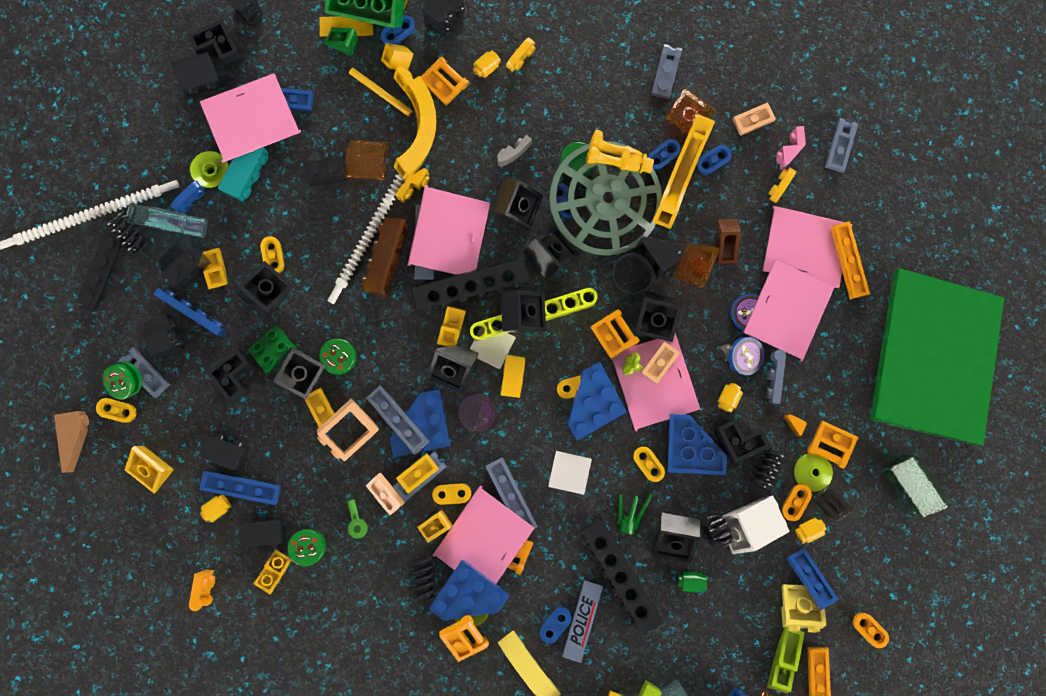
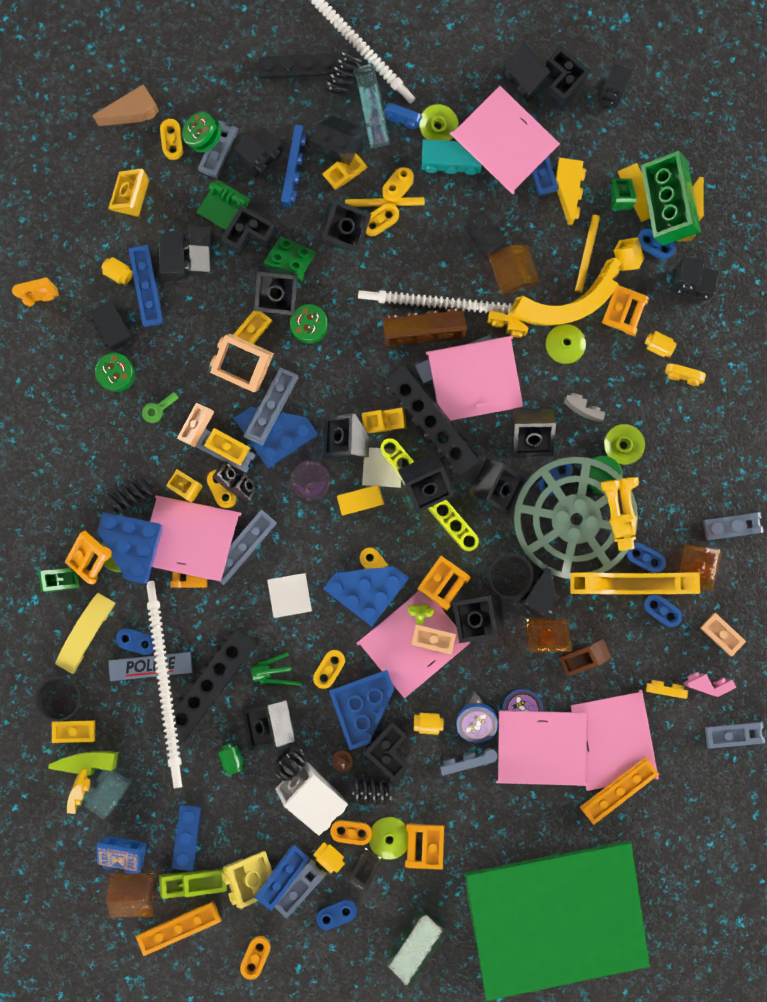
camera: 70 degrees right, 0 degrees up
(196, 389) = (222, 204): none -> green hinge
(228, 424) = (201, 248): none -> black slope
(246, 226) = (399, 183): none -> yellow plate
(256, 249) = (381, 201): none -> yellow bar
(272, 572) = (79, 351): yellow slope -> none
(307, 78) = (568, 178): none -> yellow slope
(453, 152) = (560, 352): none -> lime dish
(453, 478) = (237, 484): none -> black slope
(472, 673) = (58, 580): none -> green slope
(561, 122) = (631, 437): none -> lime dish
(676, 632) = (174, 761): none -> white hose
(731, 485) = (342, 760): none -> reddish brown tile
(744, 649) = (186, 837): none -> blue plate
(795, 424) = (429, 800): light orange slope -> none
(827, 566) = (300, 889): none -> sand blue plate
(857, 545) = (335, 913): none -> blue plate

